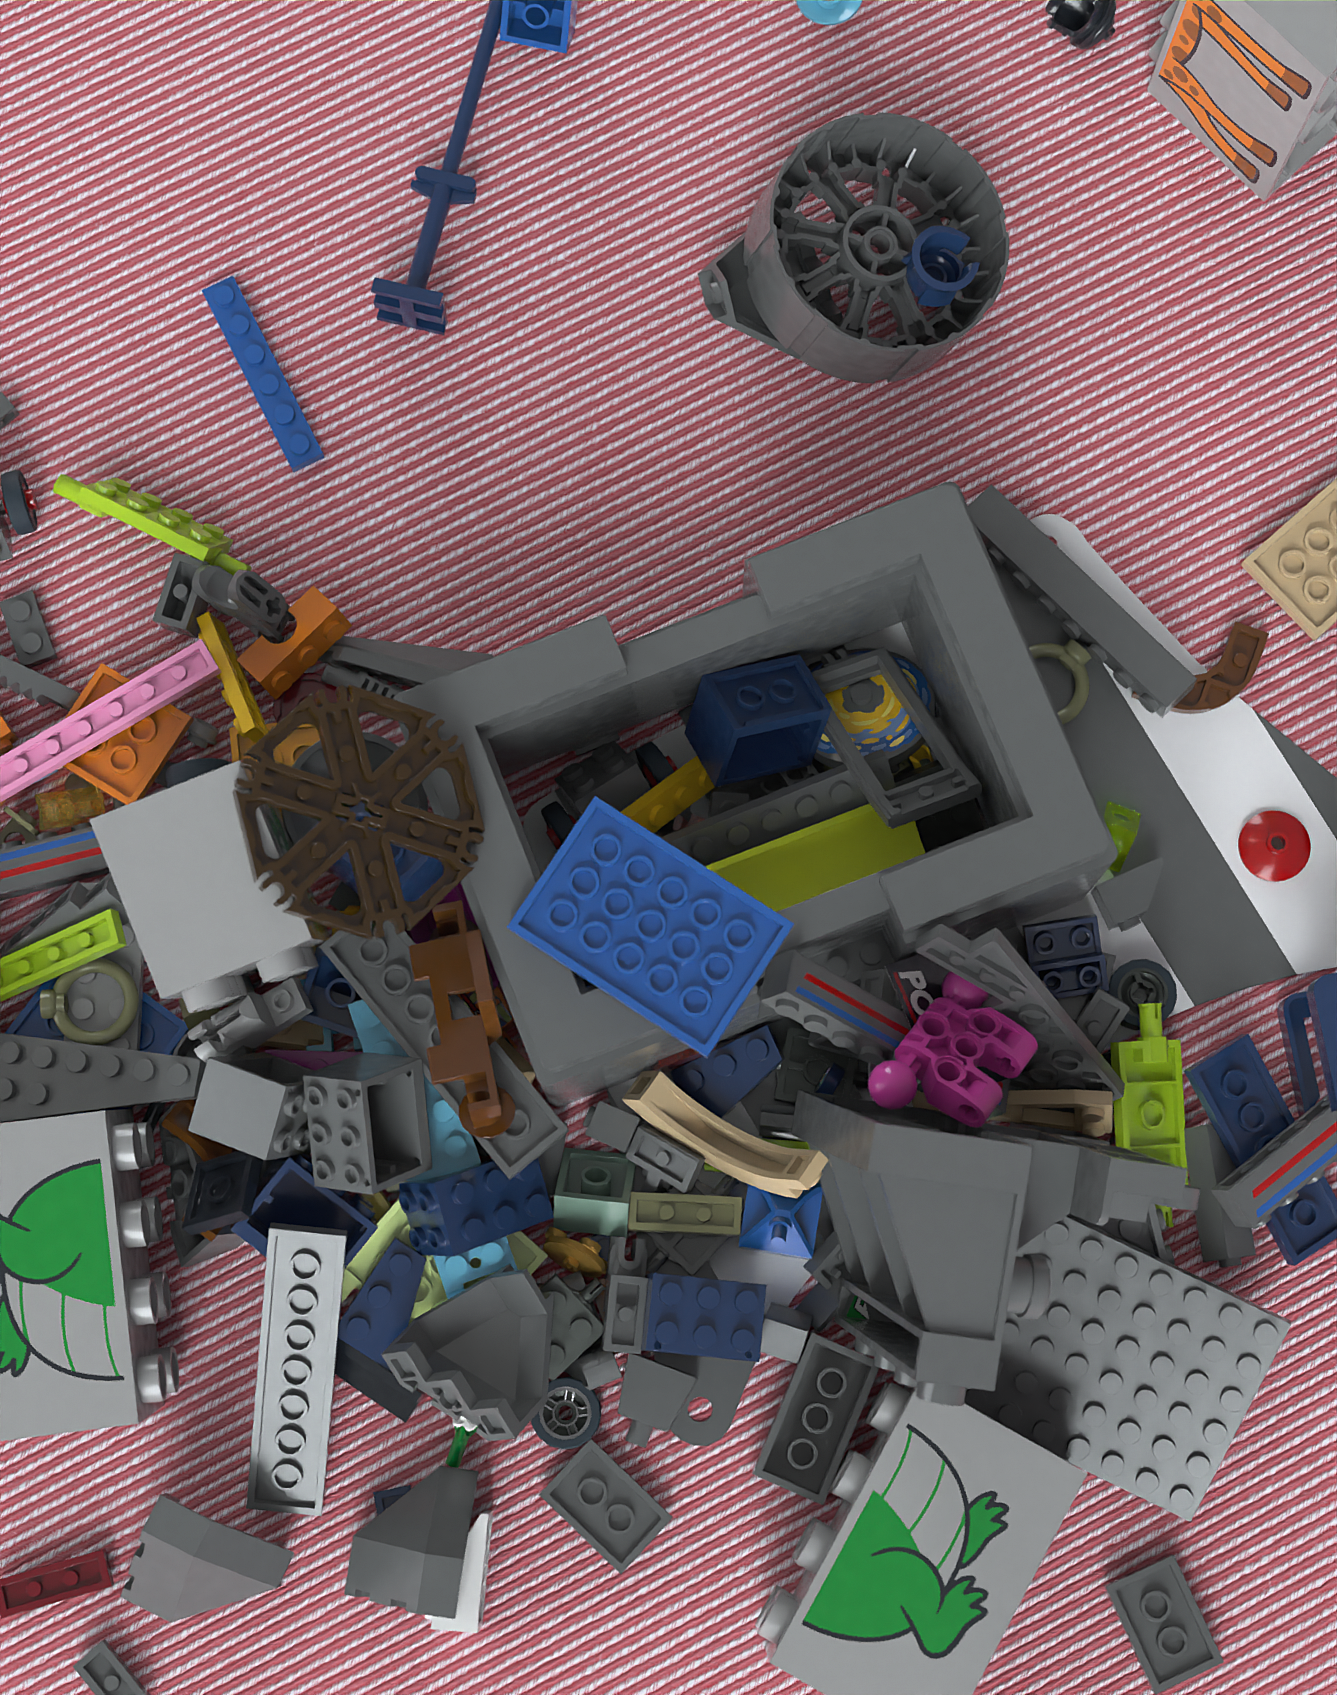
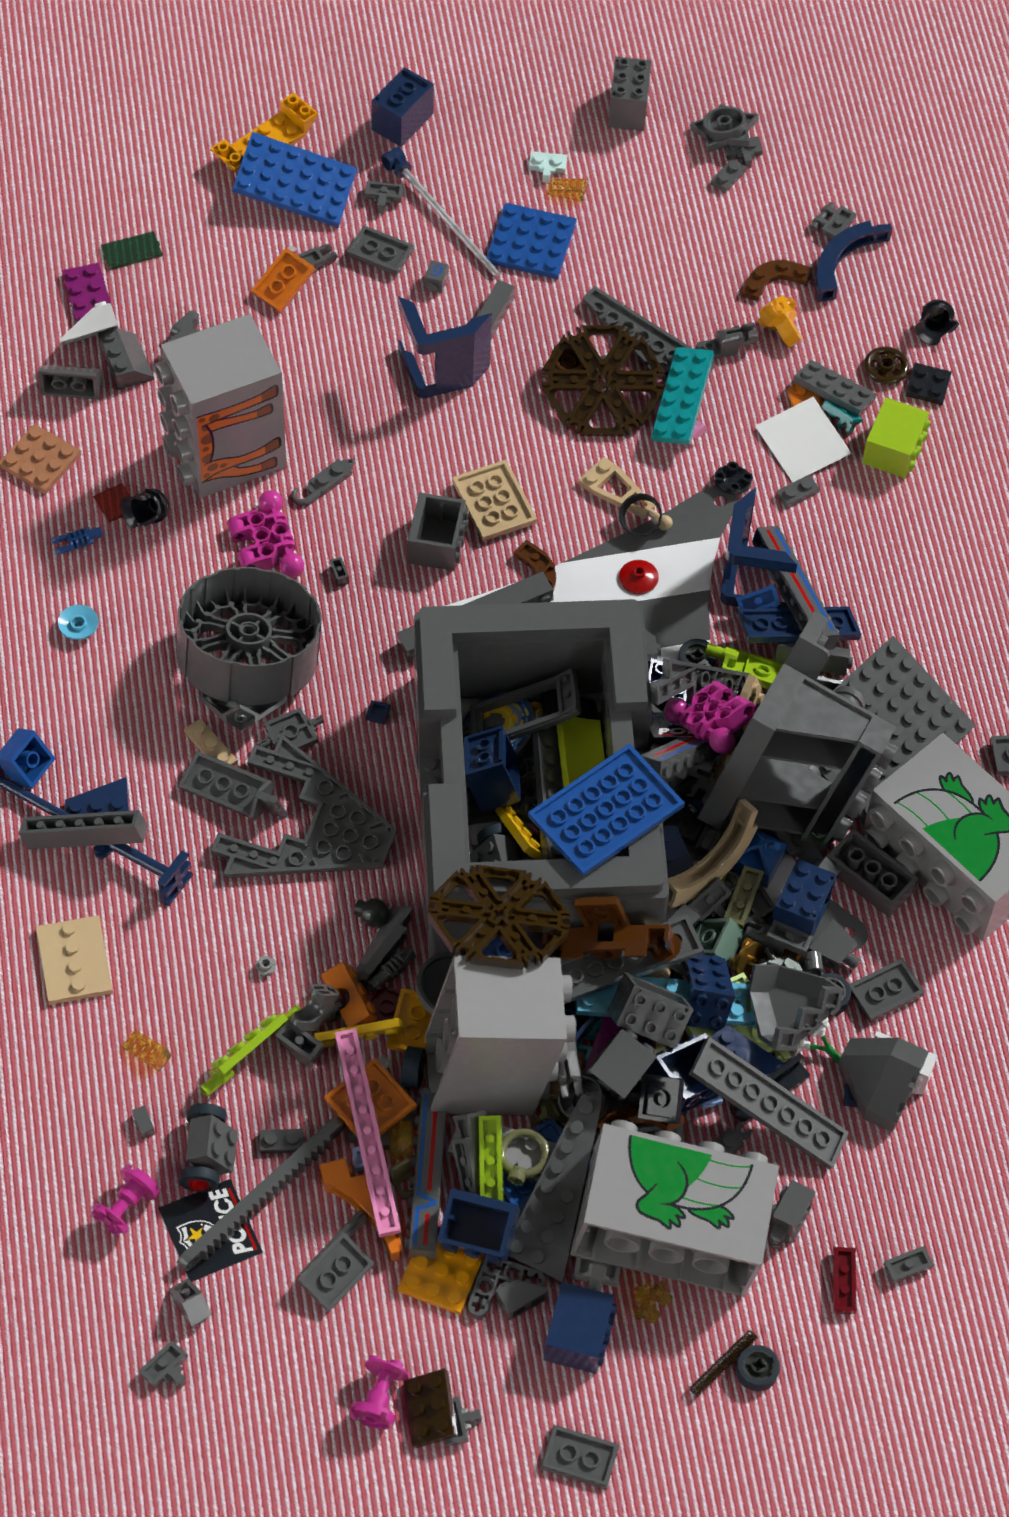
camera: 75 degrees left, 20 degrees down
(109, 398) = (157, 1058): none -> clear yellow slope
(127, 1462) = (790, 1213): none -> dark grey hinge
(198, 1563) = (857, 1192): panel -> none
(234, 216) = (74, 960): none -> tan plate
(241, 1323) = (732, 1140): none -> dark grey plate
(263, 374) = (177, 972): blue plate -> none
(317, 508) = (265, 971): none -> light grey plate
(434, 137) = (83, 829): none -> dark grey brick
(463, 626) = (372, 912): none -> pearl dark grey piece
(519, 151) = (107, 798): none -> dark blue wing
(590, 531) = (341, 834): none -> dark grey wing
(608, 331) = (230, 787): none -> dark grey hinge
(680, 276) = (208, 742): none -> tan plate
(748, 387) = (294, 726): none -> dark grey plate
(839, 507) = (378, 712): none -> dark blue tile
(935, 272) = (278, 607): dark blue helmet -> none
(1086, 355) = (339, 571): none -> dark grey piece
(1124, 215) = (244, 527): none -> dark pink connector
(1218, 481) = (437, 531): none -> dark grey container
(1259, 272) = (325, 481): none -> dark grey plate
(1289, 1065) = (762, 598): none -> blue wing

